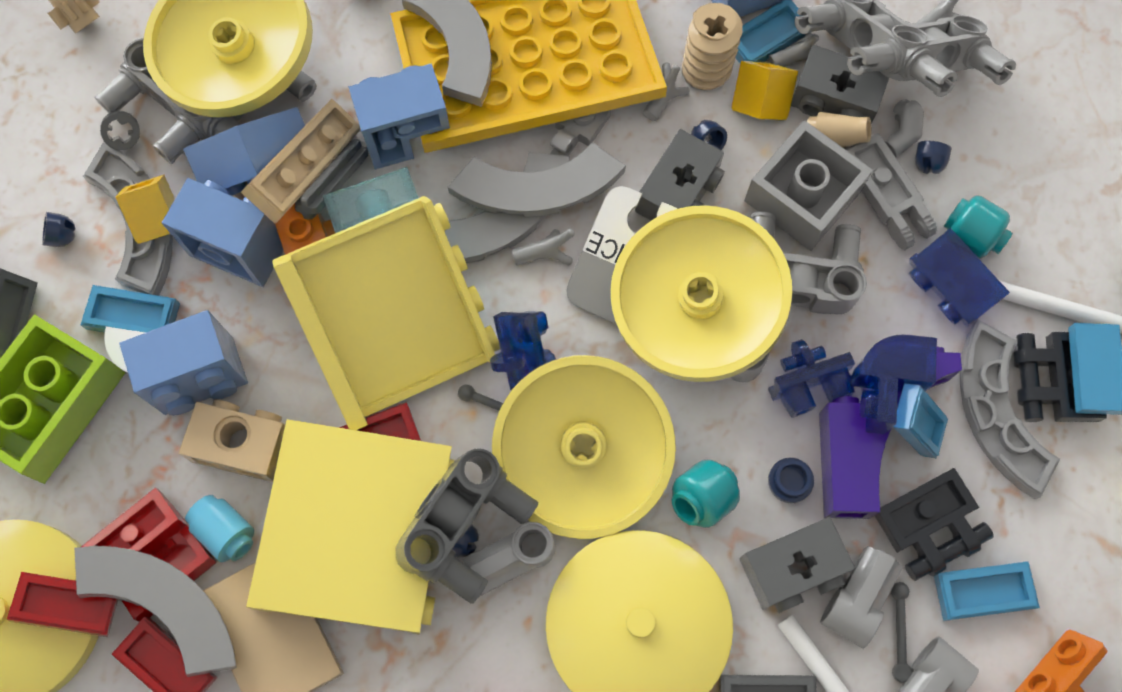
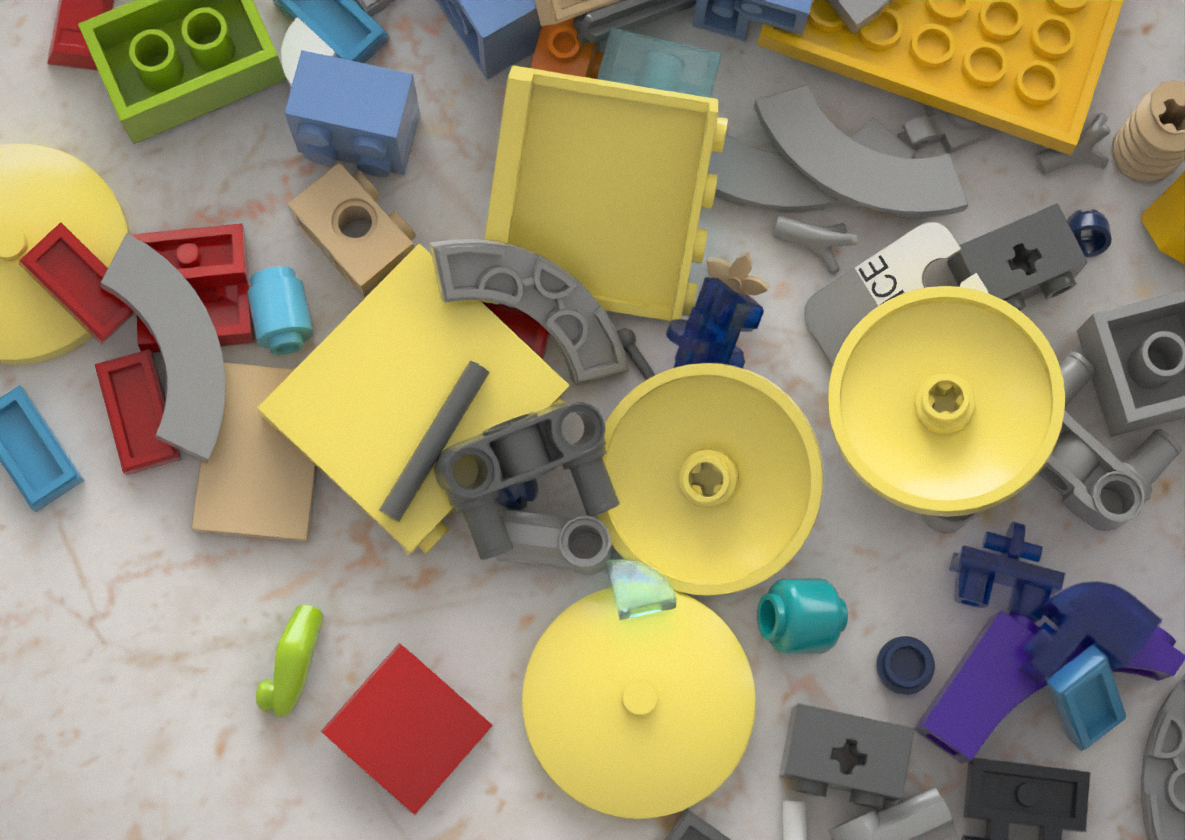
camera: 30 degrees right, 5 degrees up
(385, 546) = (434, 441): none -> dark grey bar
(387, 396) = (539, 288): none -> light grey tile
(511, 302) = (737, 274): none -> tan plant
(588, 550) = (638, 588): none -> clear light blue tile

